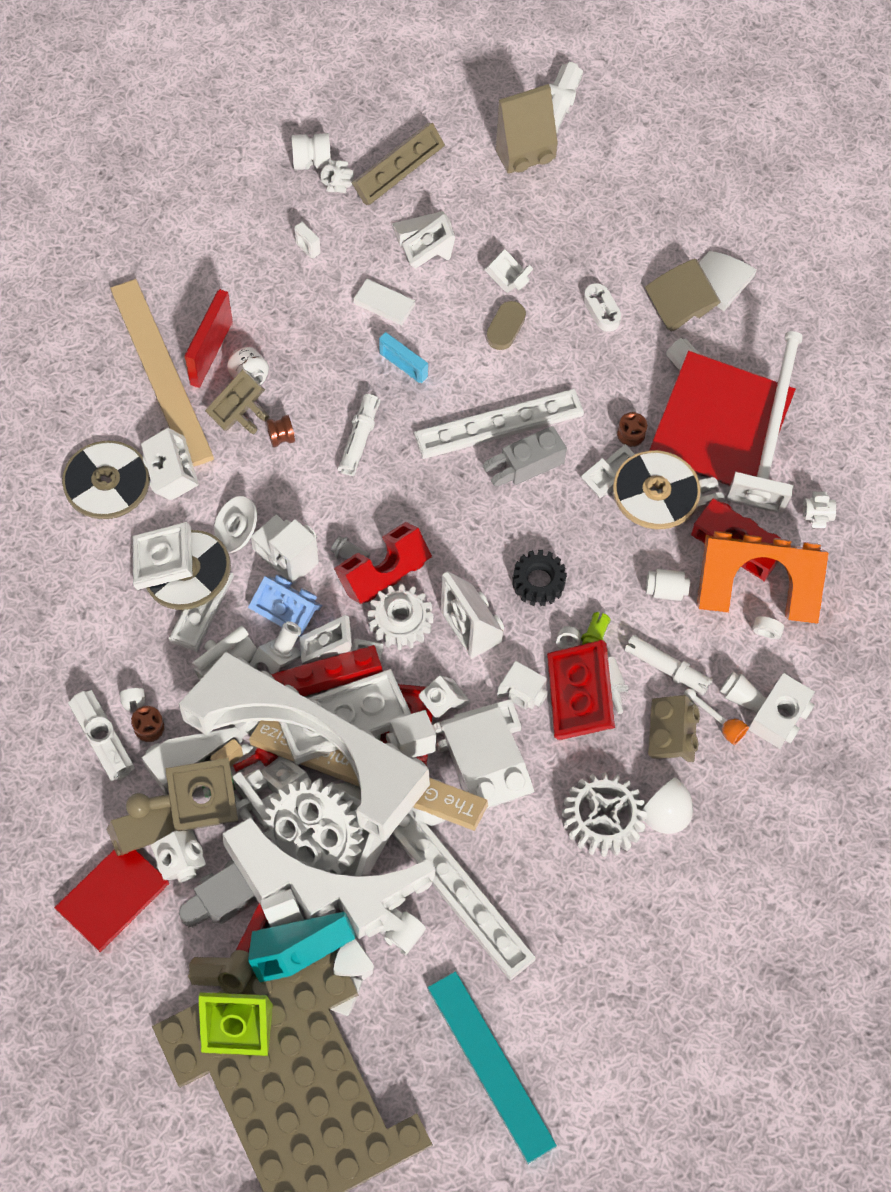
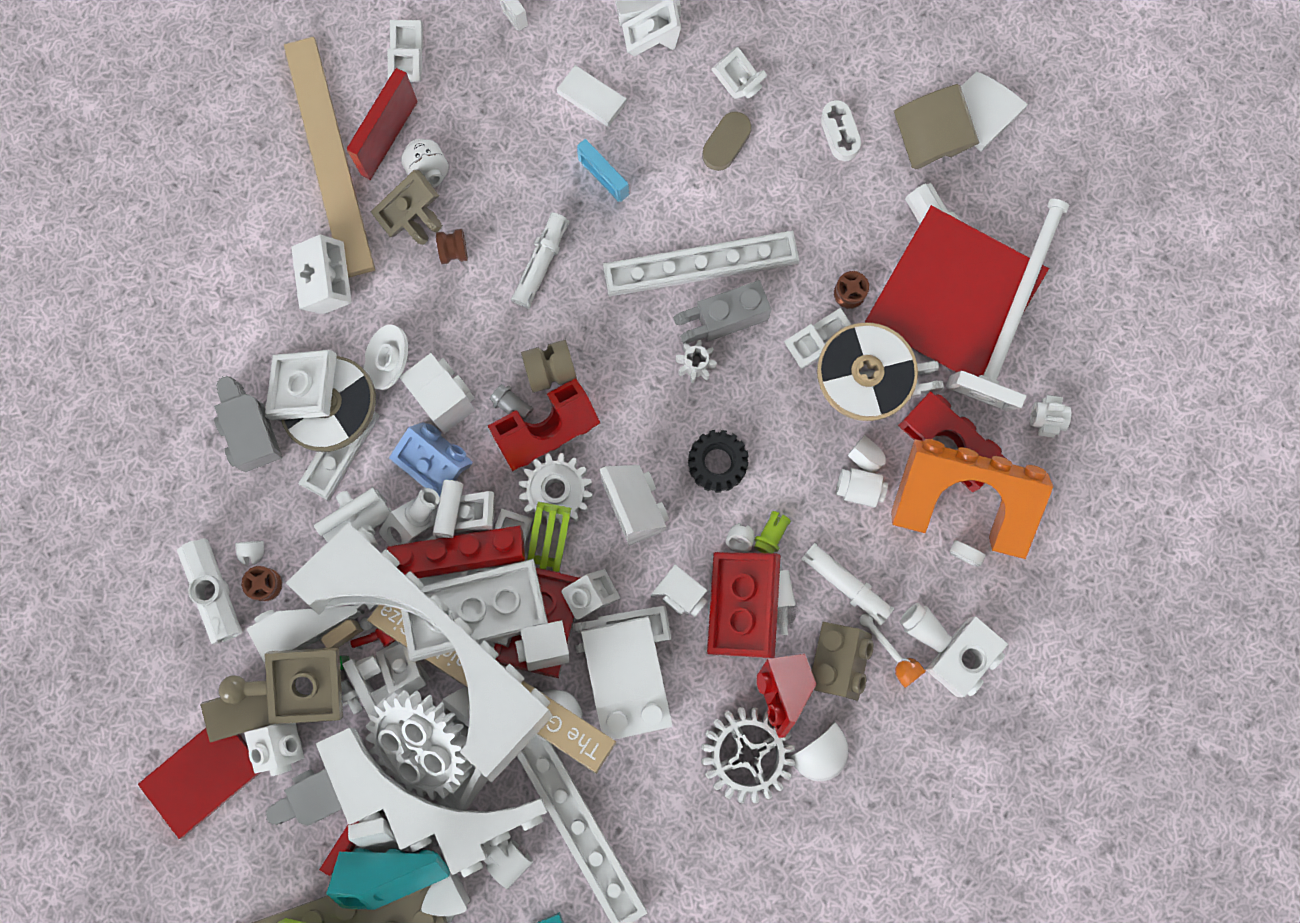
camera: 10 degrees right, 15 degrees up
(97, 497) = (228, 274): piece -> none
(117, 596) = (245, 427): none -> light grey hinge
(215, 277) = (406, 48): none -> white slope
(229, 973) = (302, 888): dark tan piece -> none
(309, 637) = (448, 509): none -> white axle
(379, 516) = (548, 366): none -> dark tan wheel
(412, 656) = (545, 560): none -> lime tile
(507, 507) = (705, 363): none -> white gear
(628, 750) = (786, 688): none -> slope
(668, 558) = (867, 455): none -> white tile

